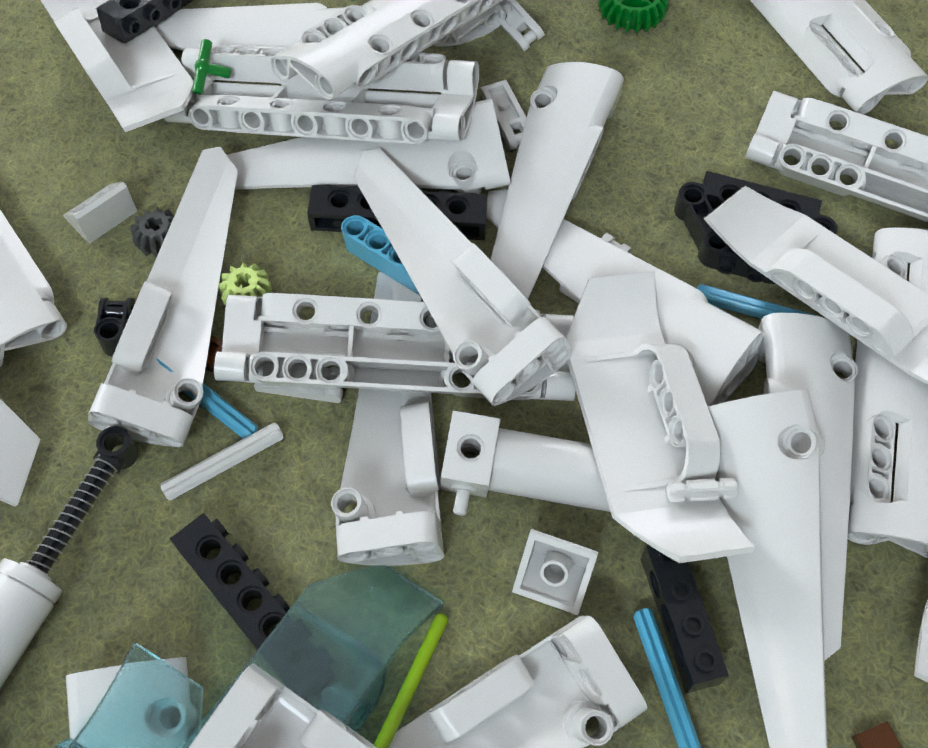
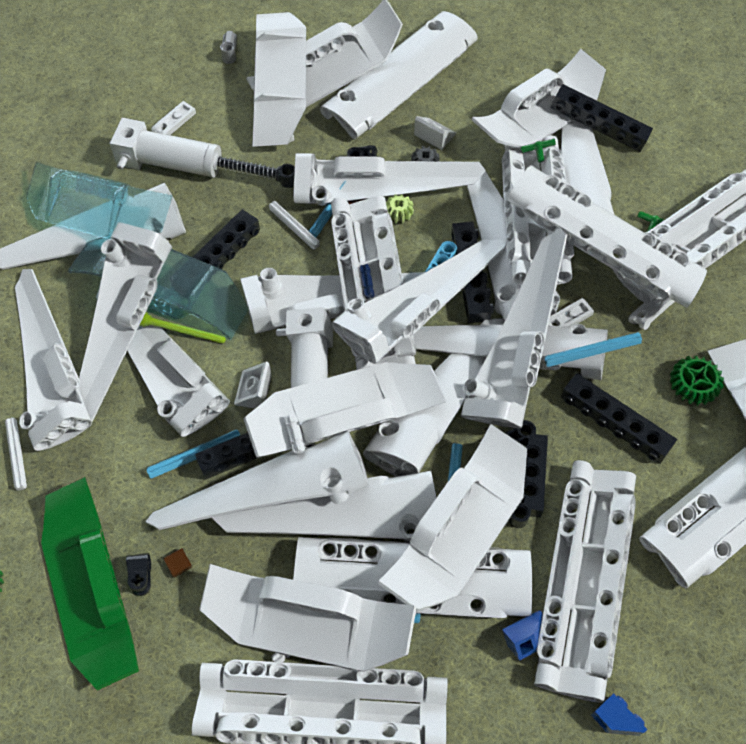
camera: 80 degrees right, 0 degrees up
(392, 351) = (366, 280): none -> dark blue axle
(579, 162) = (512, 366): none -> white panel
(599, 75) = (593, 349): none -> medium azure axle
(678, 95) = (628, 418): none -> black brick

